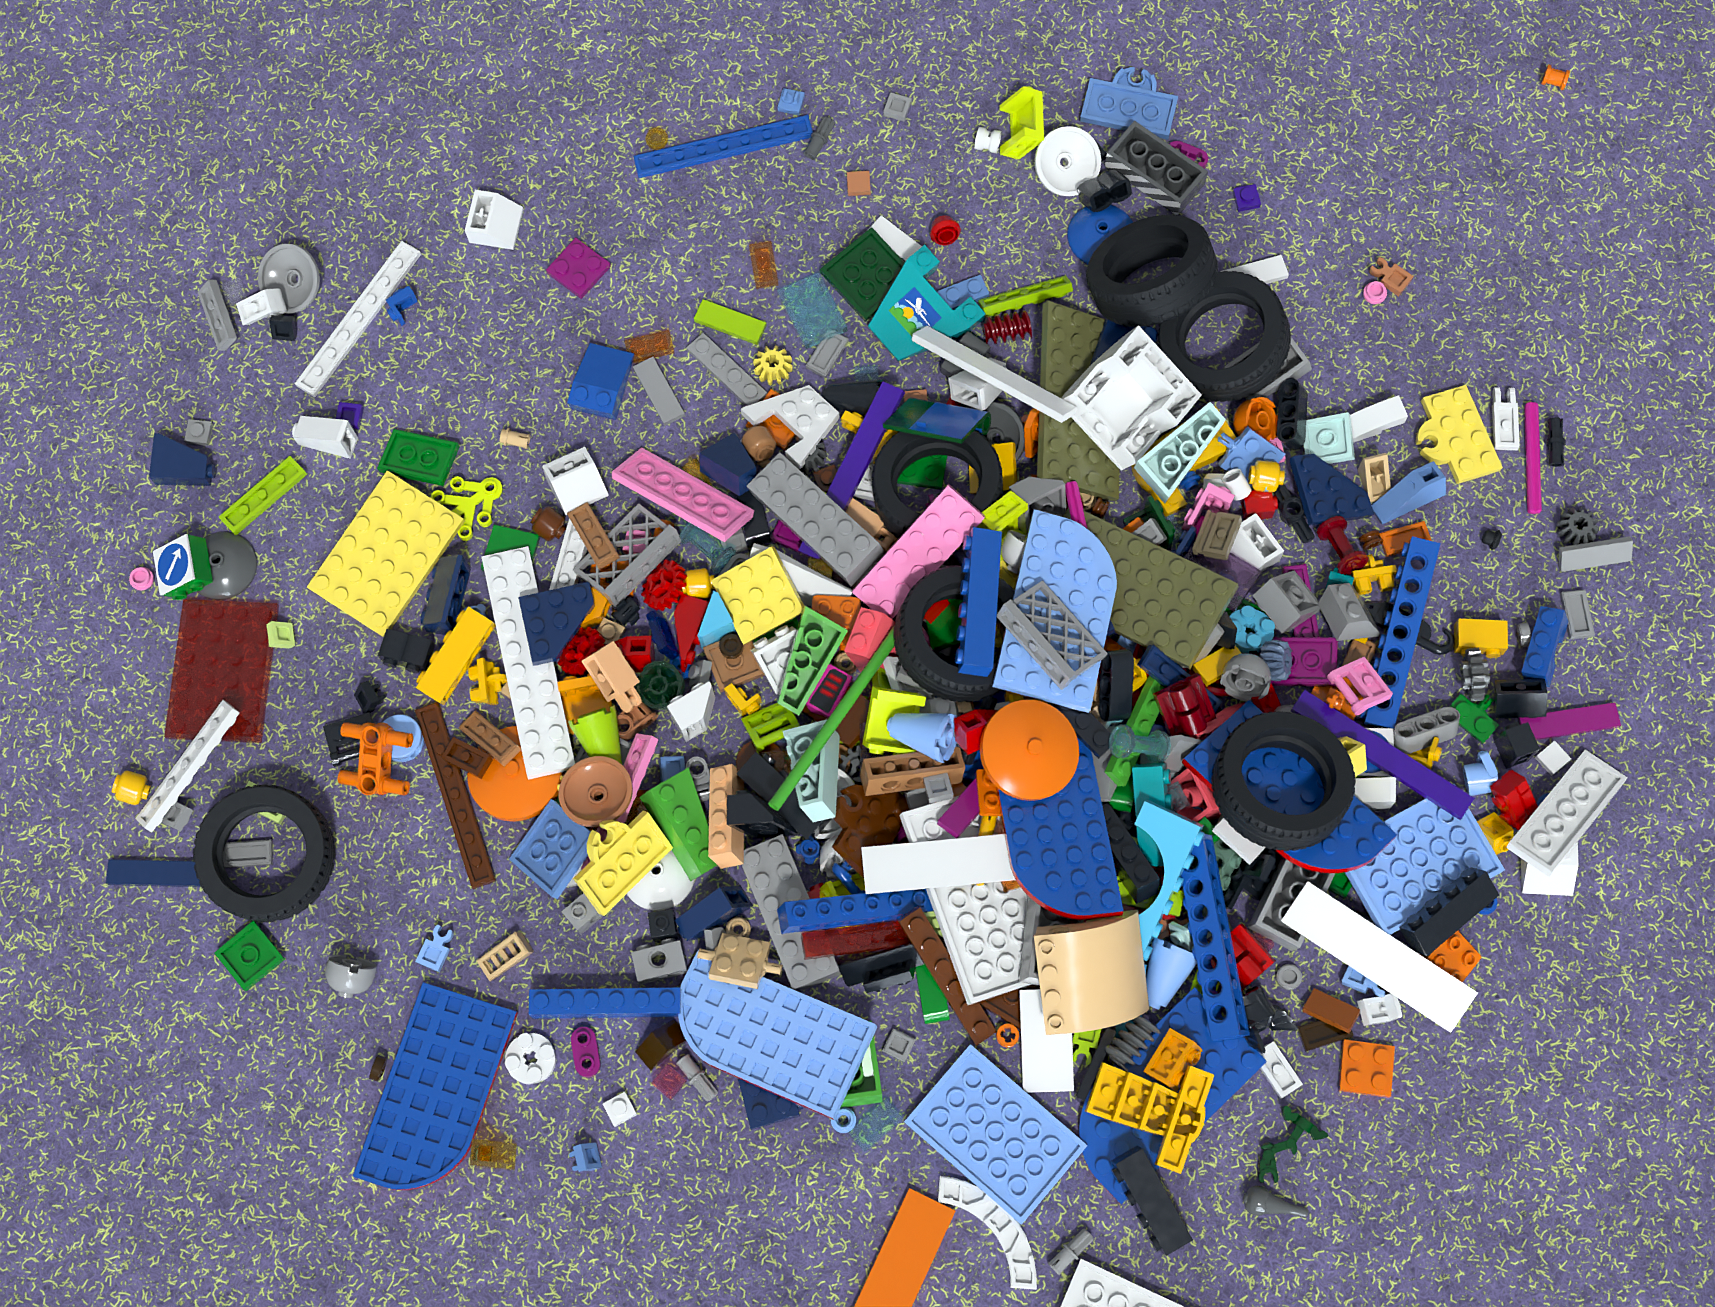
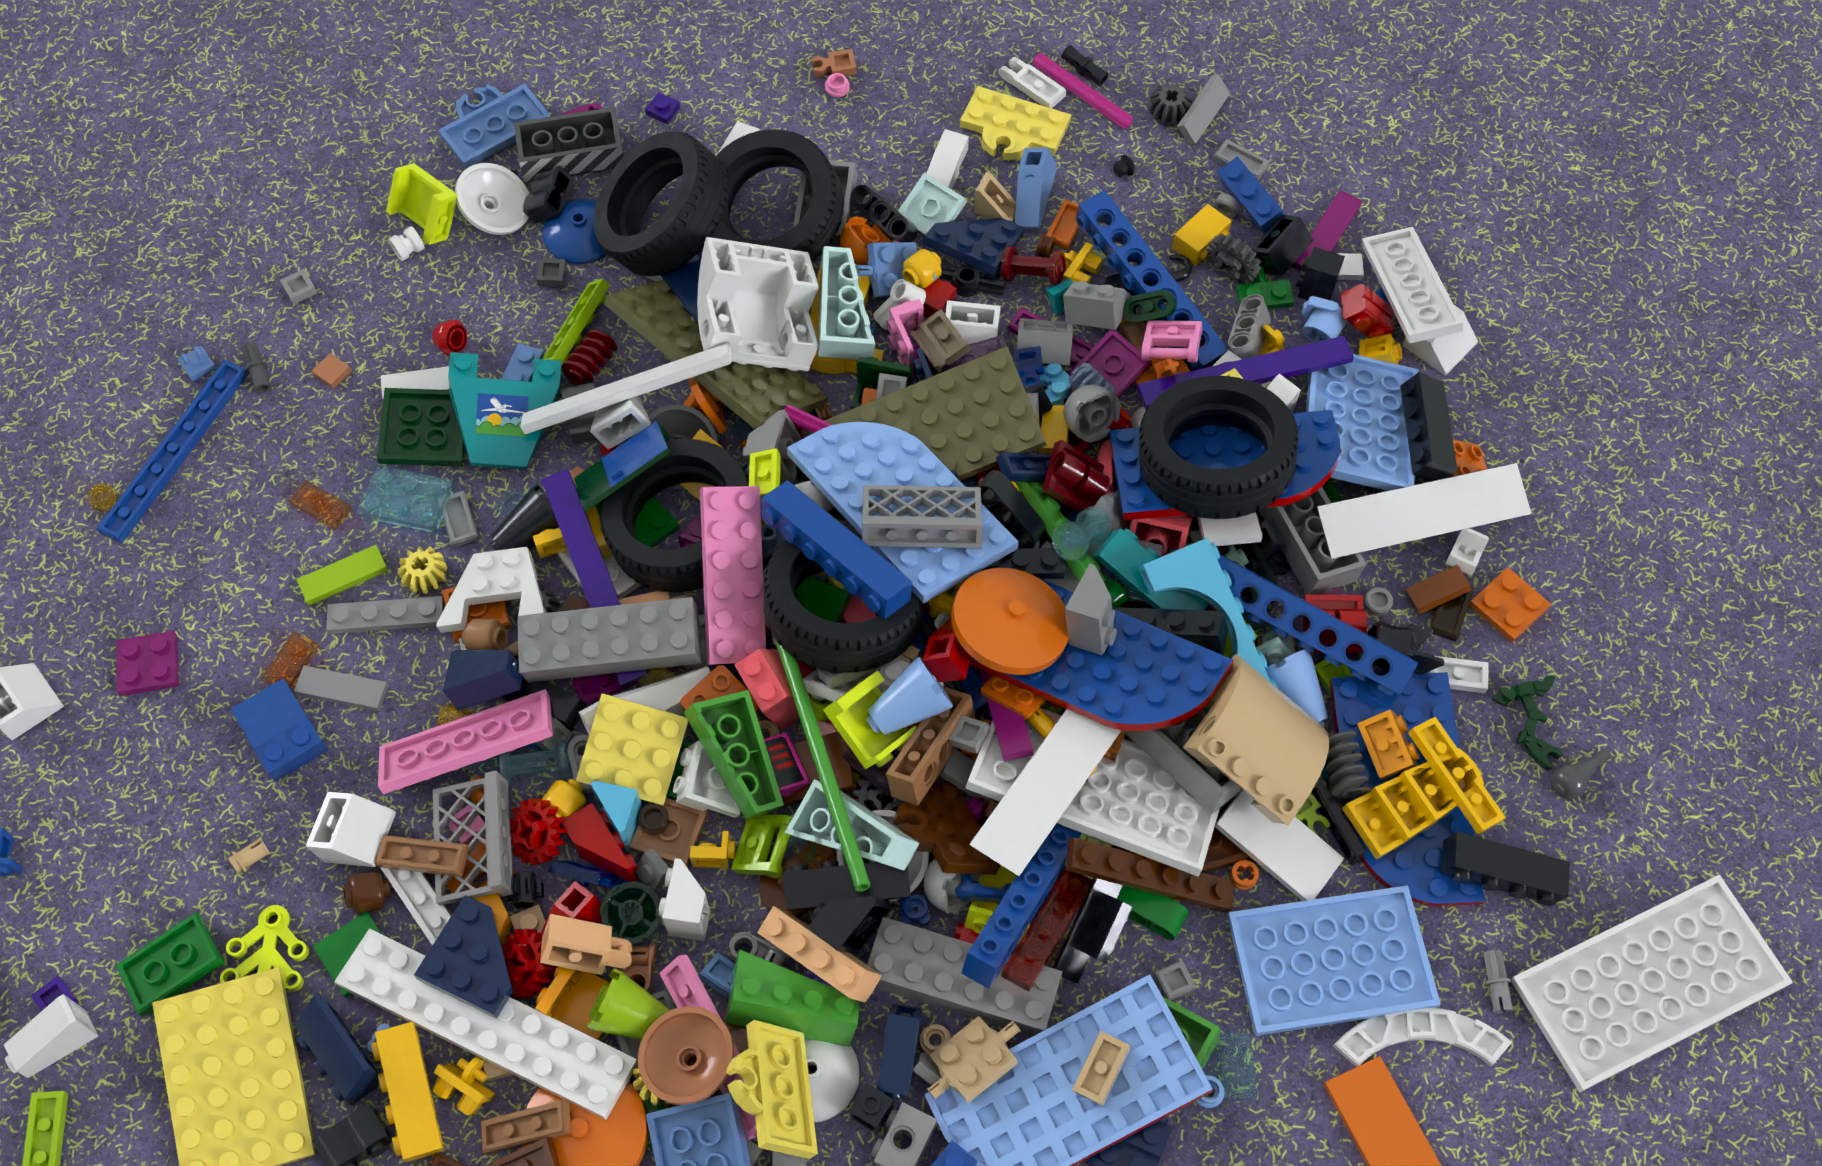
camera: 55 degrees left, 10 degrees down
(791, 1041) = (1101, 1068): none -> tan plate
(1050, 246) = (551, 272): none -> dark grey plate
(1074, 795) = (1091, 614): none -> light grey slope
(1251, 606) = (1029, 365): none -> clear blue plate
(1360, 983) = (1429, 547): light blue plate -> none
(1376, 650) = (1150, 305): none -> dark green plate

